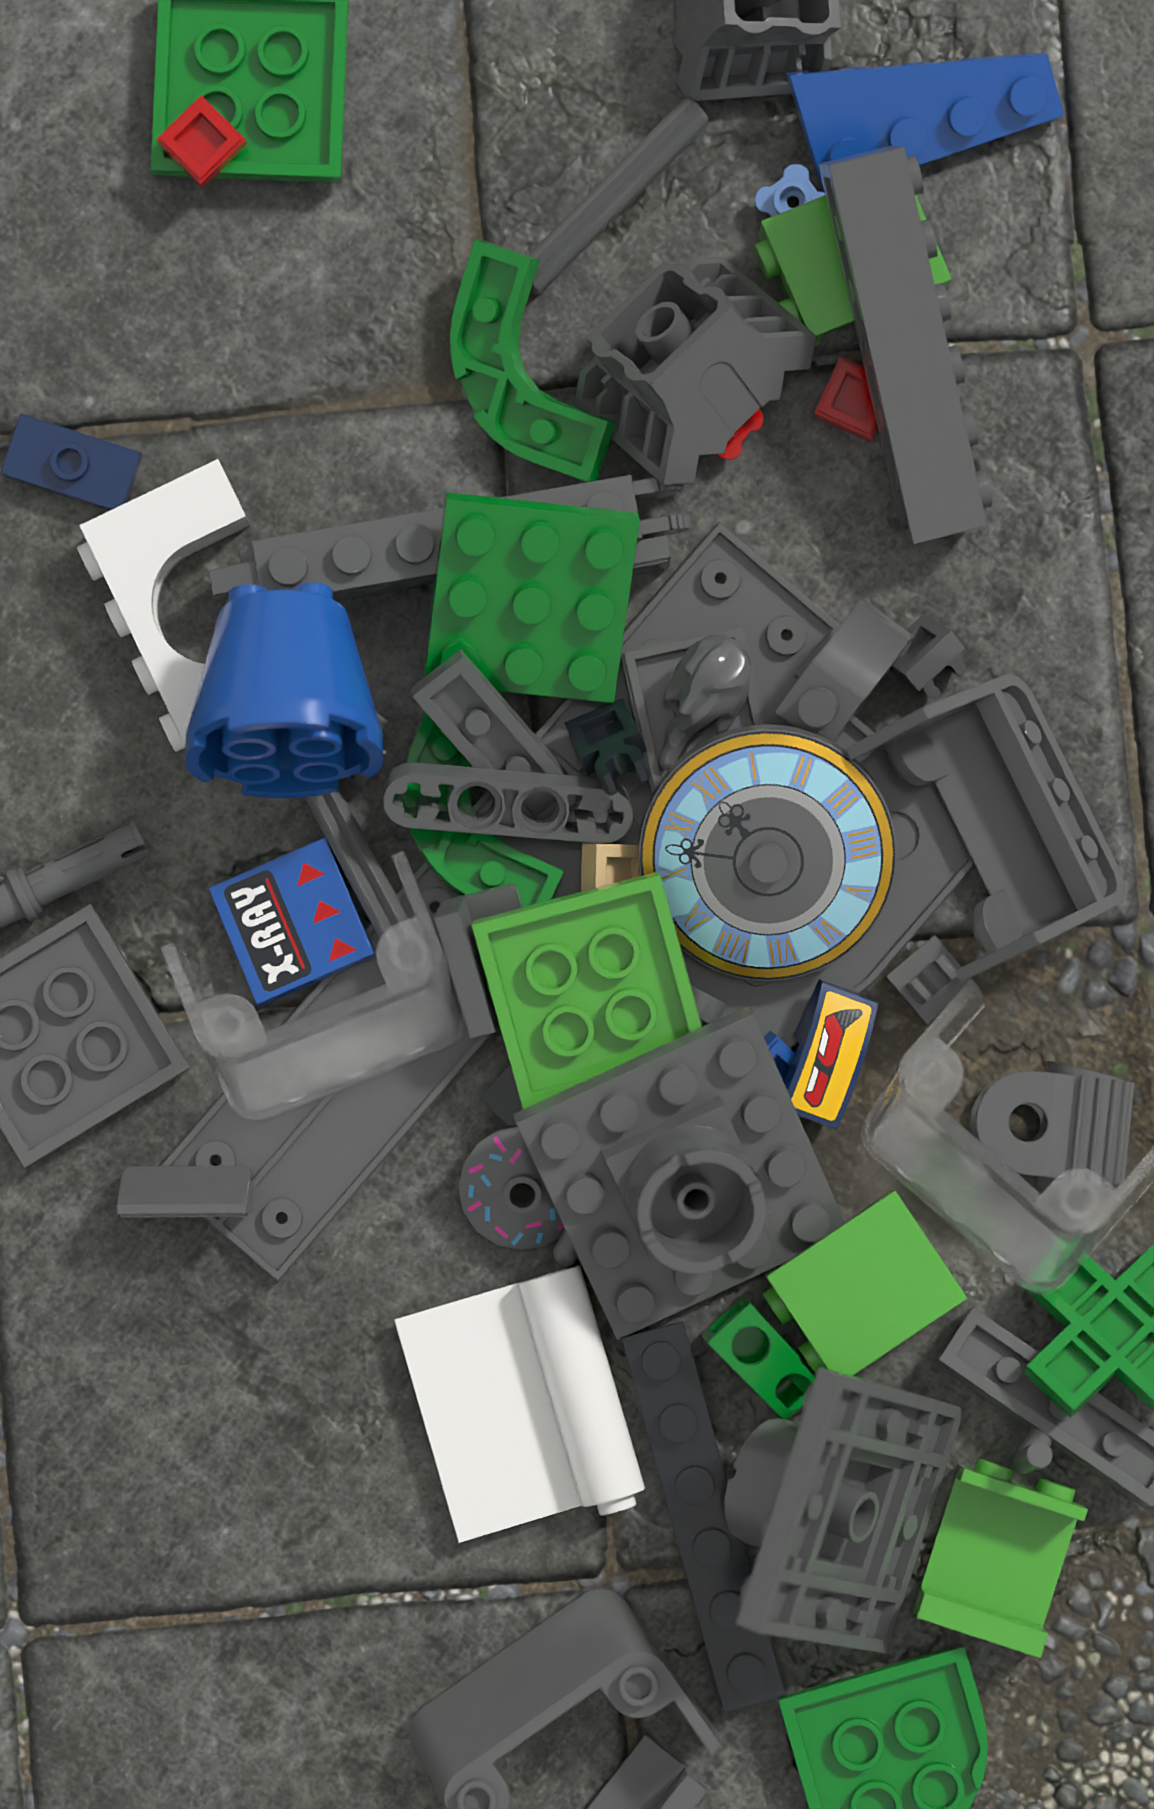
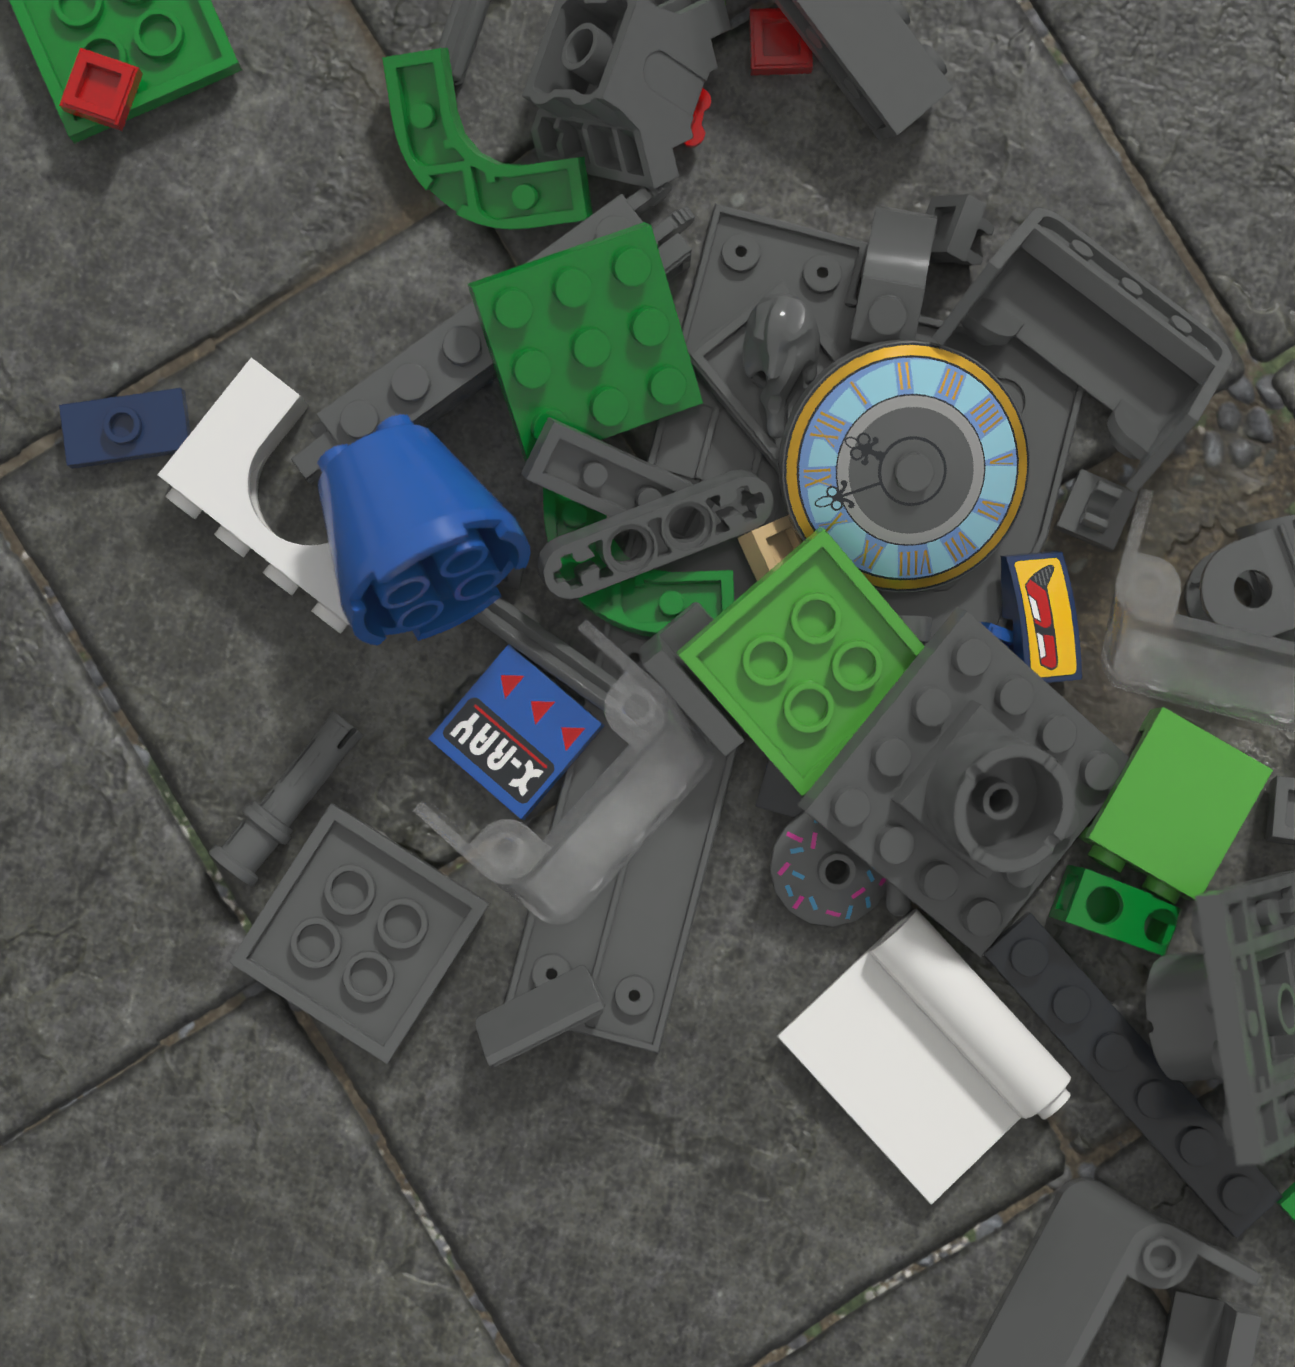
camera: 25 degrees left, 0 degrees up
(608, 744) = (718, 438): black plate -> none

